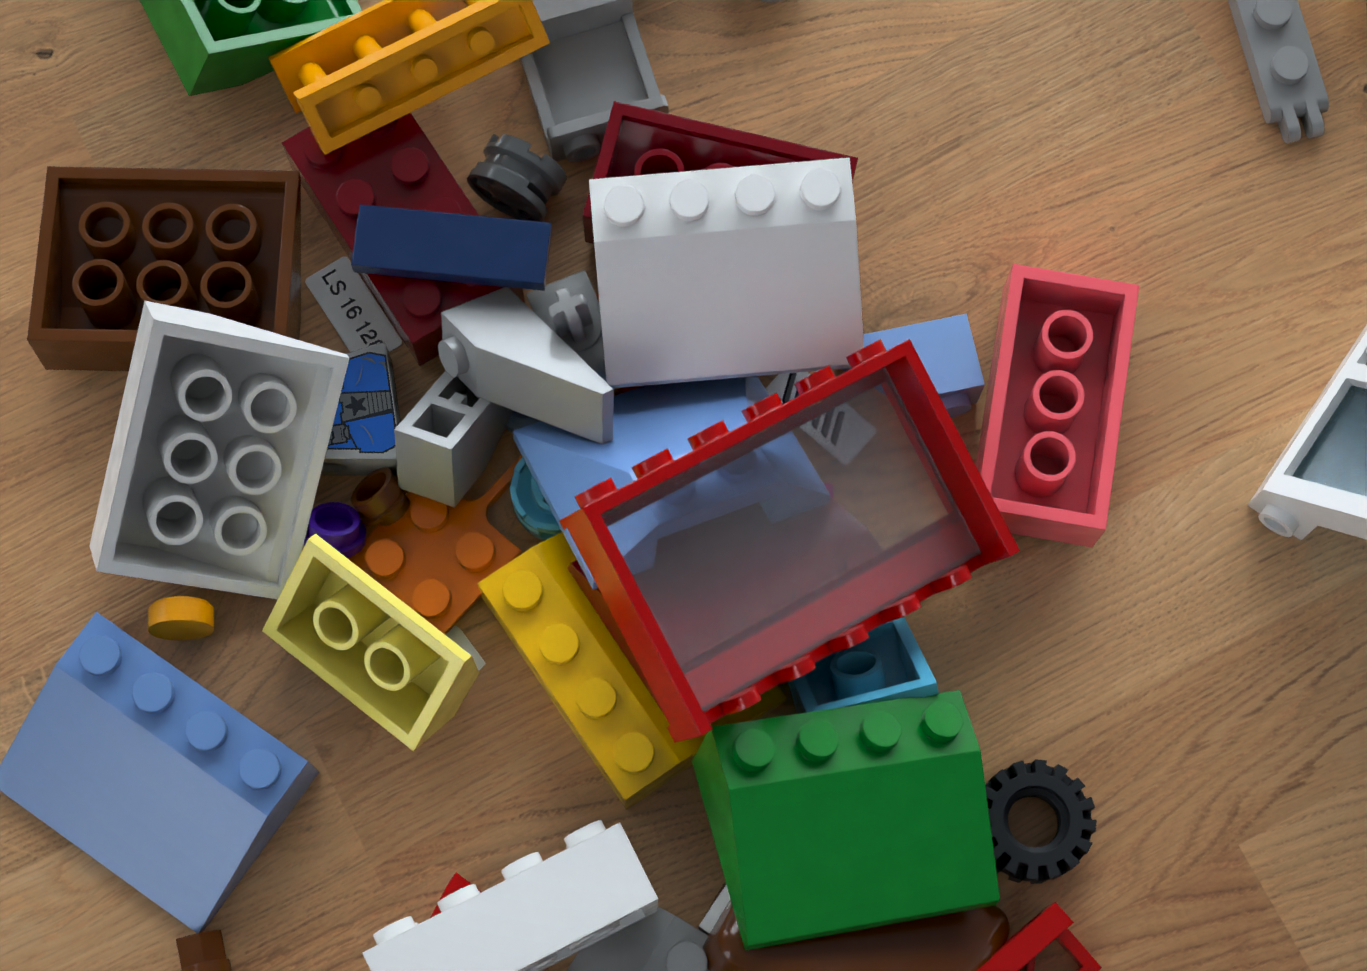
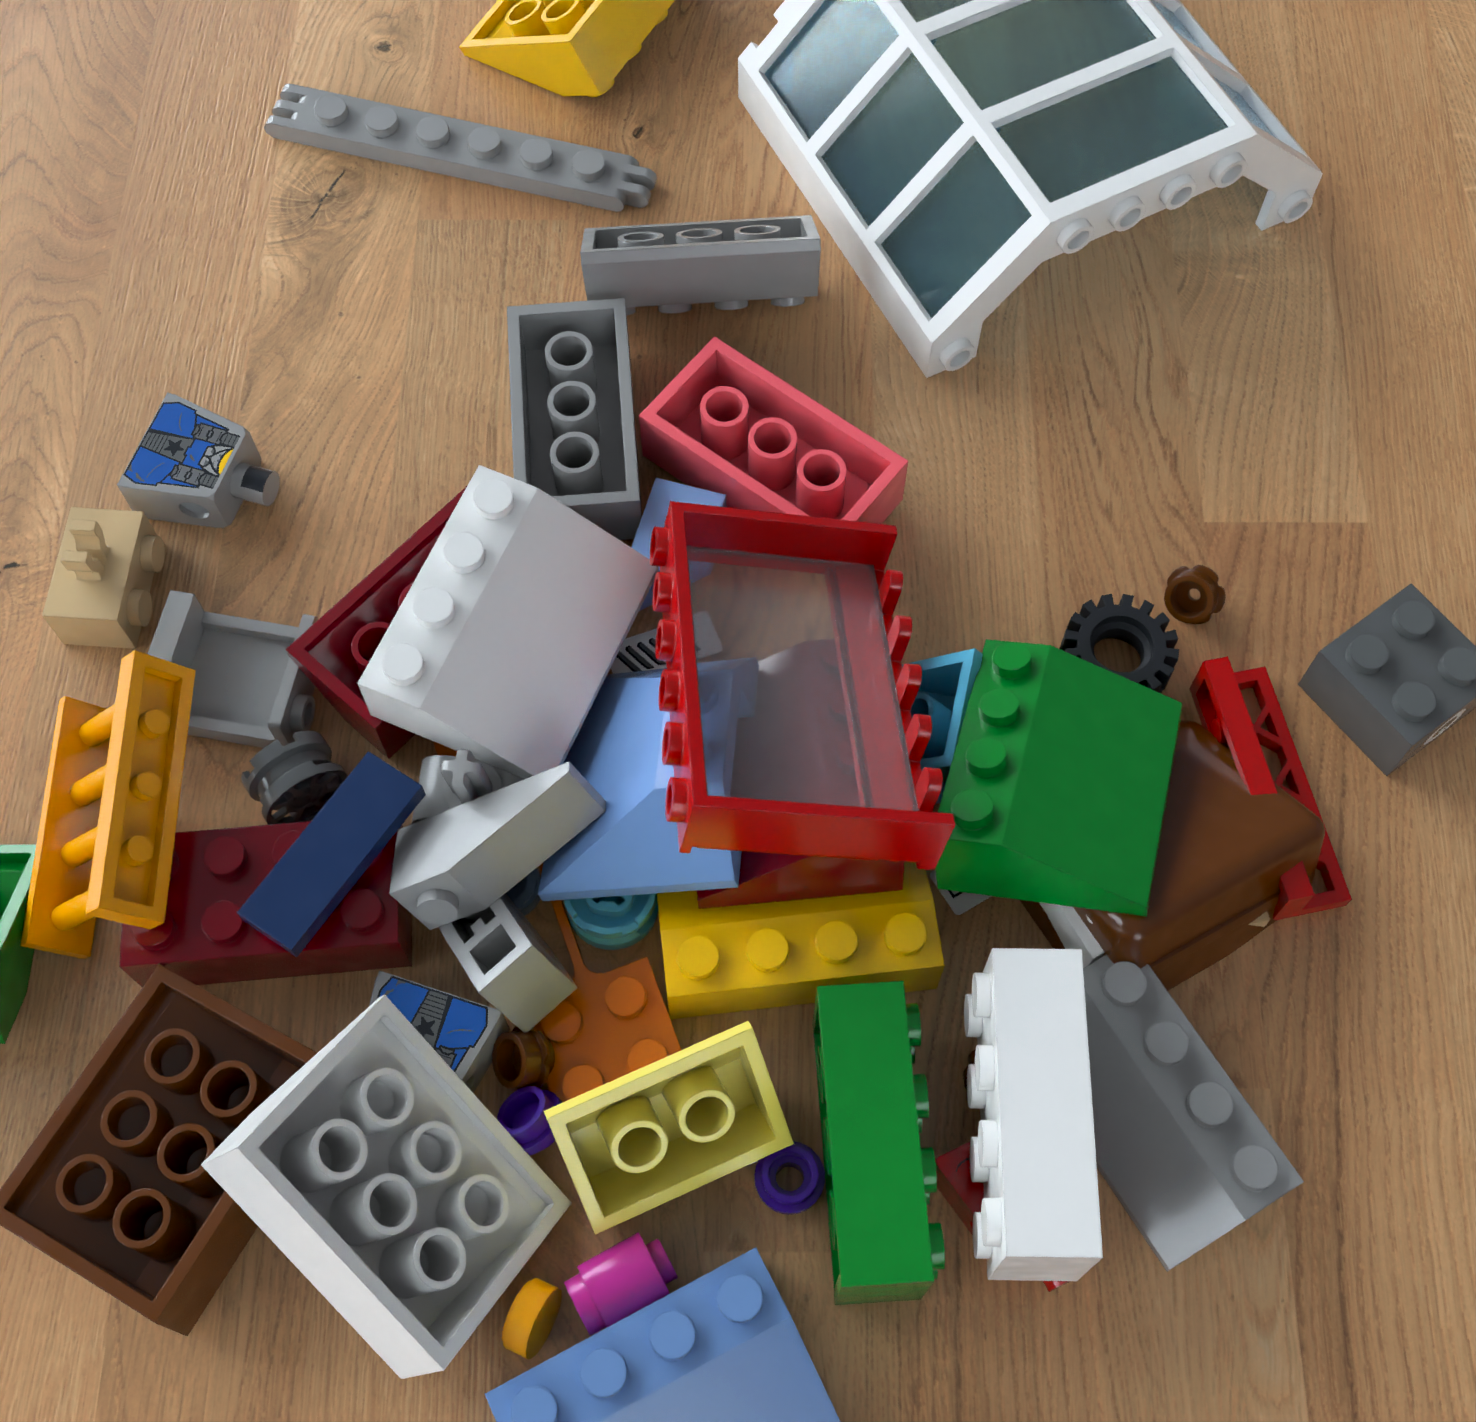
camera: 60 degrees left, 10 degrees down
(239, 673) = (620, 1282): none -> dark pink brick
(351, 307) = (315, 999): white sticker -> none
(373, 767) = (790, 1202): none -> dark purple plate
(439, 814) = (871, 1144): none -> green brick
(990, 206) = (576, 409): none -> light grey brick
(1137, 866) = (1186, 608): none -> reddish brown plate
(1229, 226) = (703, 263): none -> light grey slope

